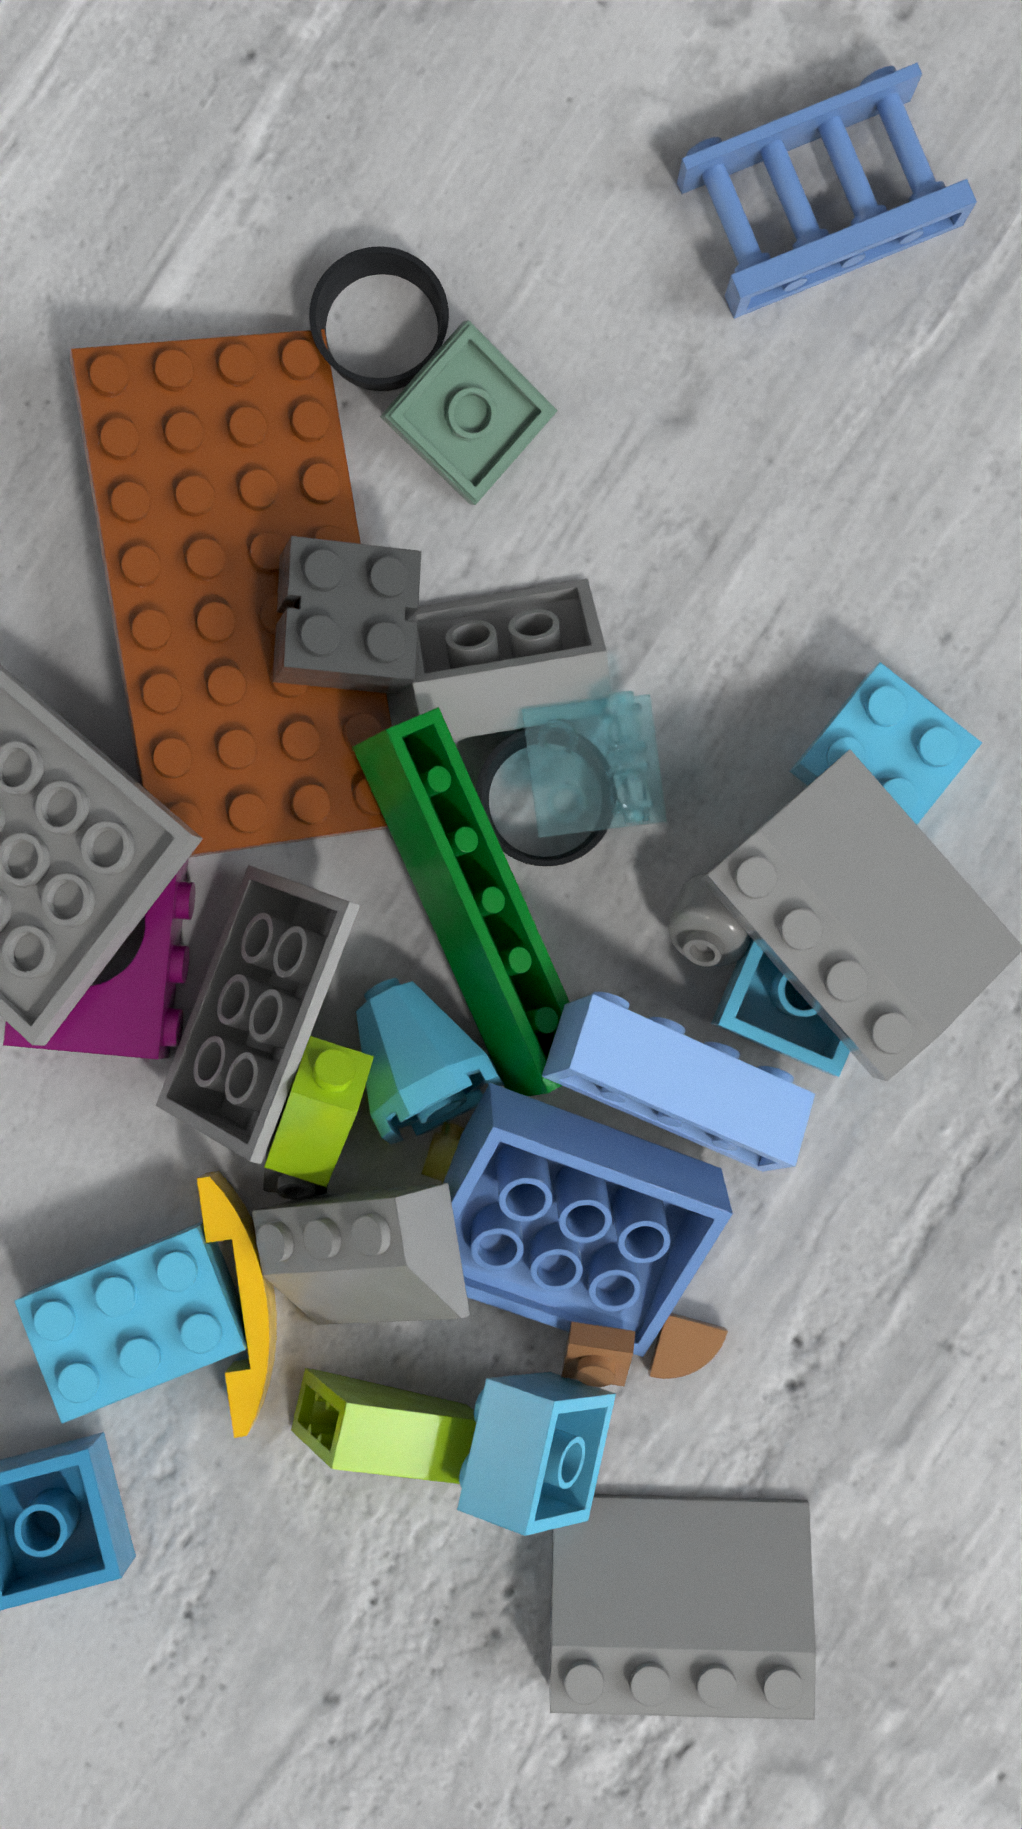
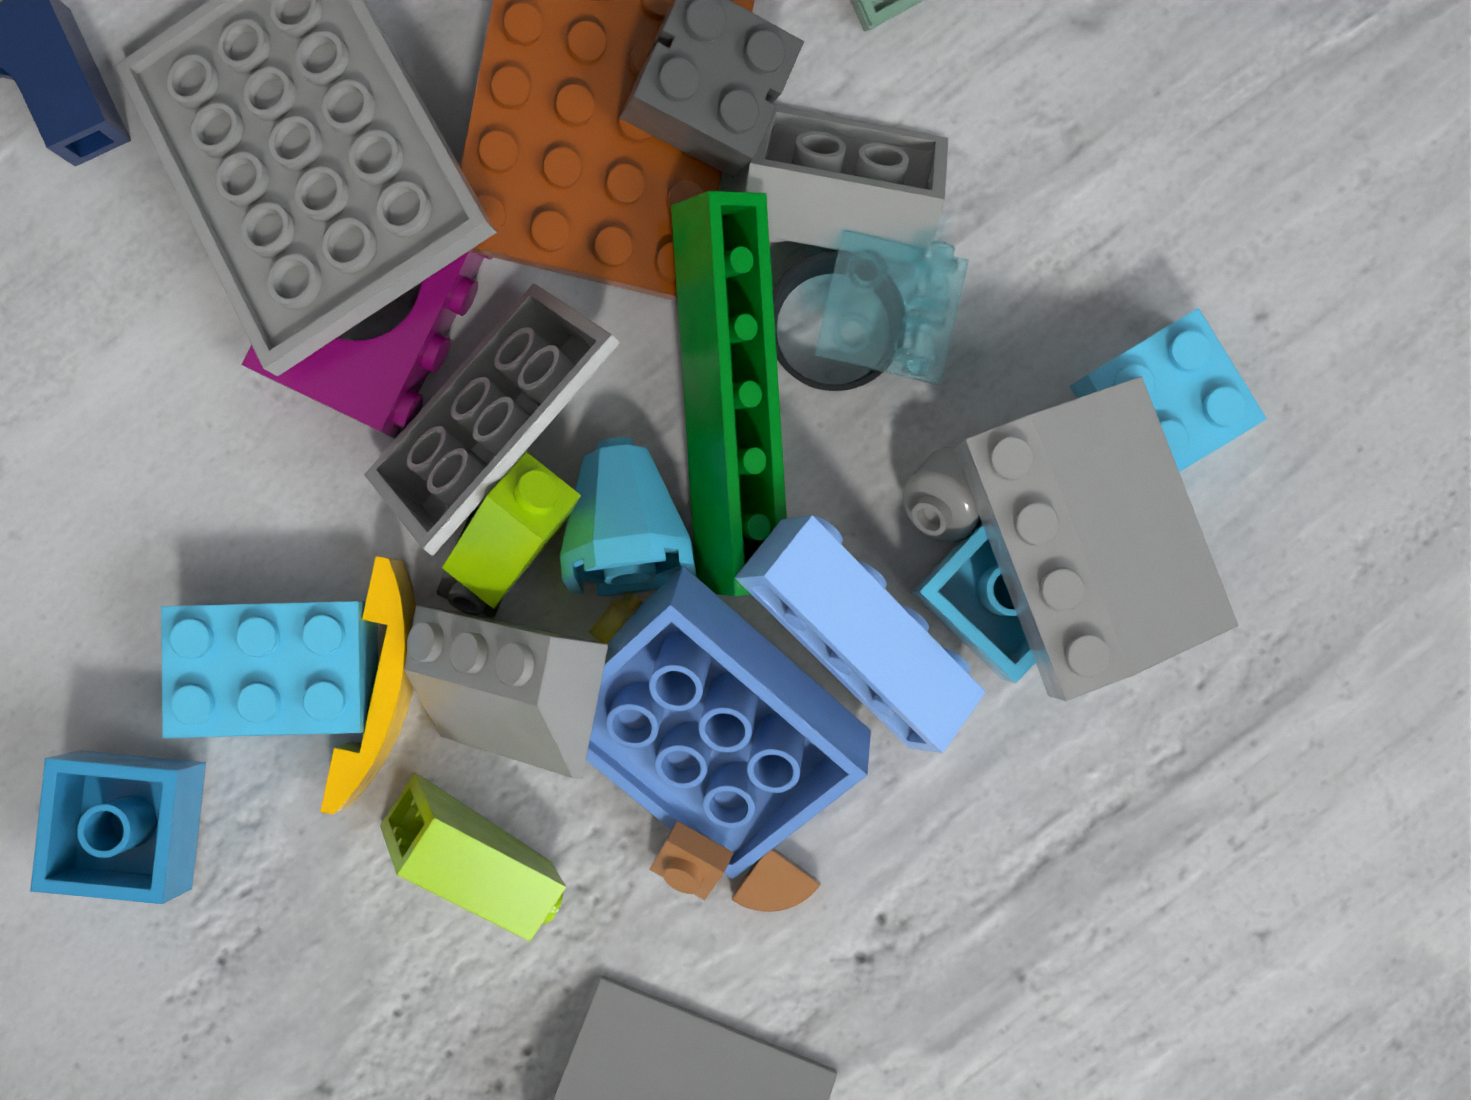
camera: 20 degrees right, 0 degrees up
(535, 1452) = (596, 931): medium azure brick -> none

